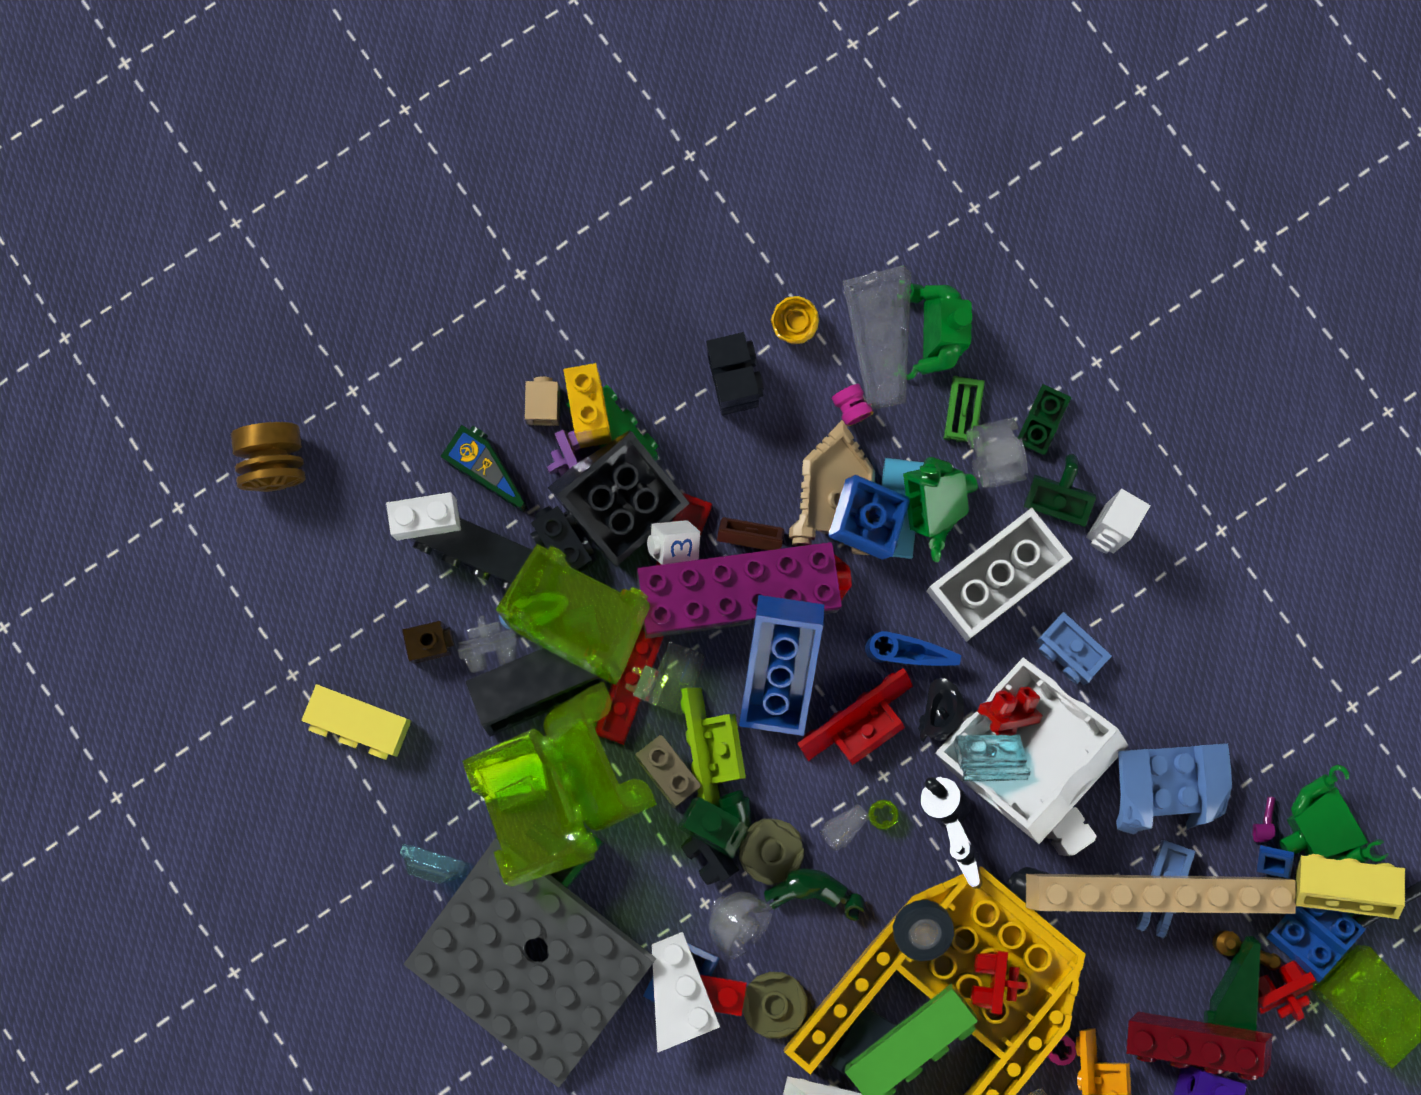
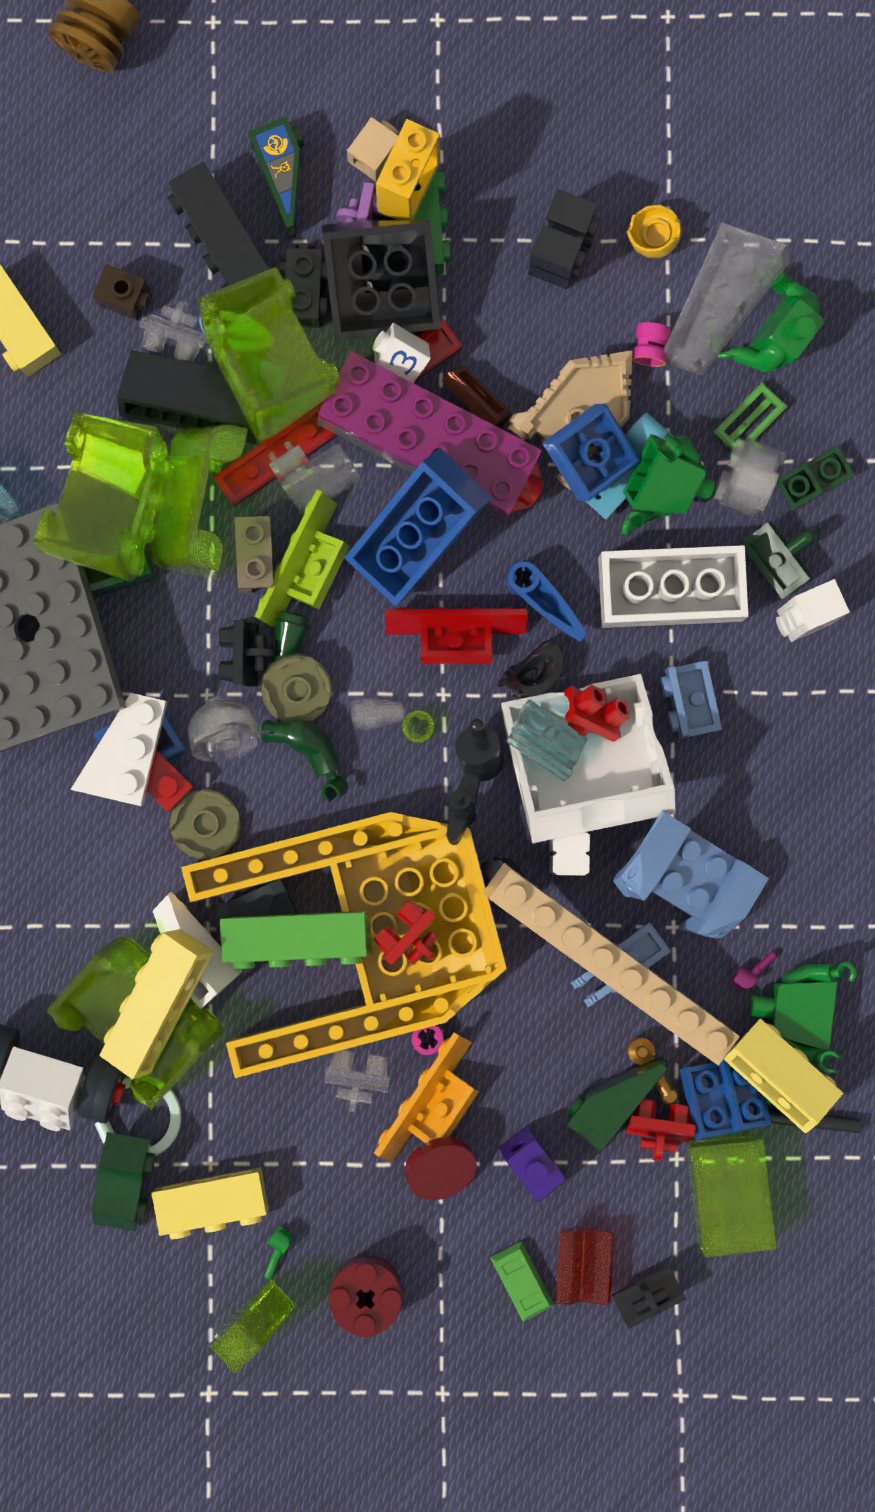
camera: 30 degrees right, 5 degrees up
(423, 516) = (192, 172): white brick -> none
(520, 793) = (107, 478): clear neon green piece -> none
(713, 826) = (257, 628): dark green torso -> none
(923, 930) = (376, 846): black wheel -> none
(1199, 1044) = (550, 1116): dark red brick -> none
(1275, 862) = (734, 1010): blue slope -> none

